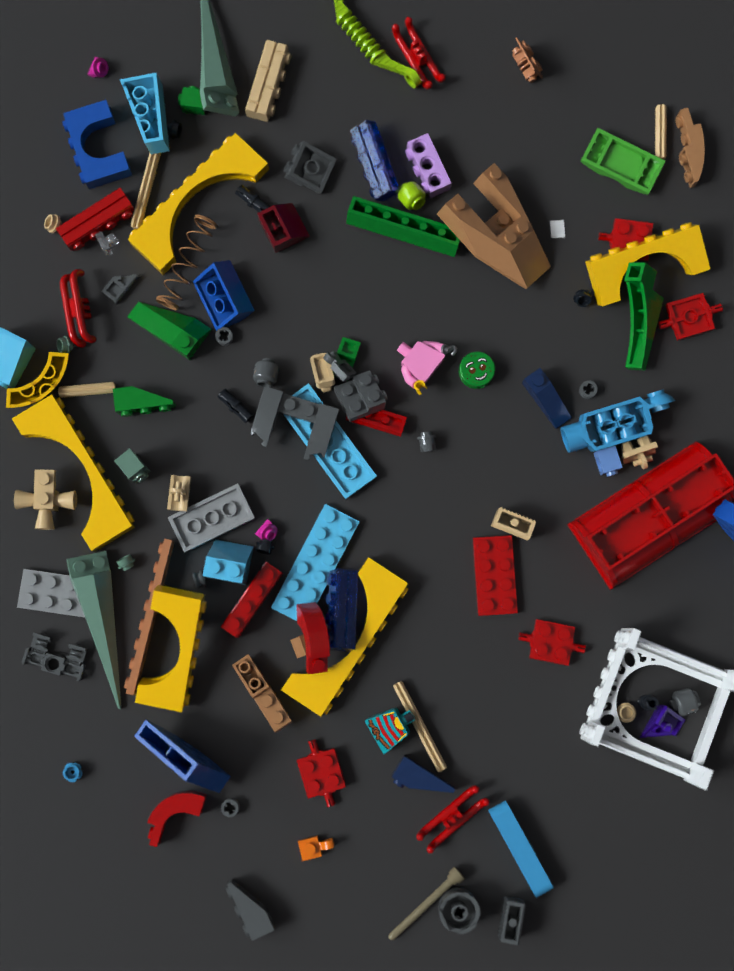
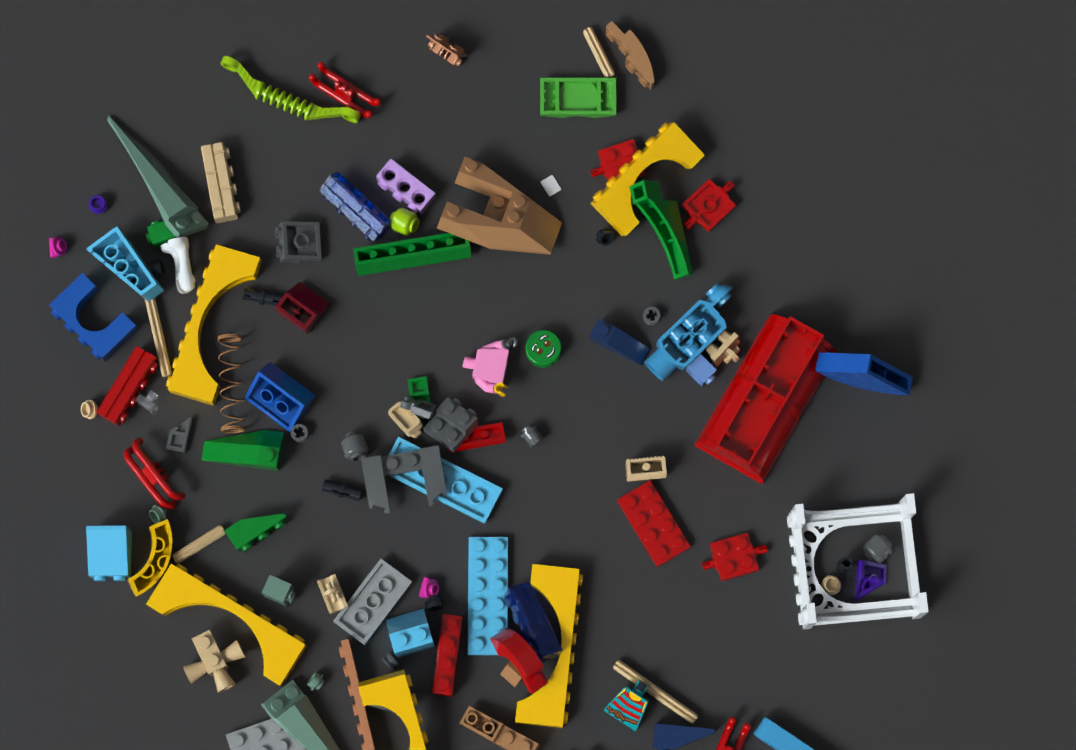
camera: 25 degrees left, 5 degrees down
(152, 48) = (98, 204): none -> dark purple plate
(201, 120) = (179, 249): none -> white piece

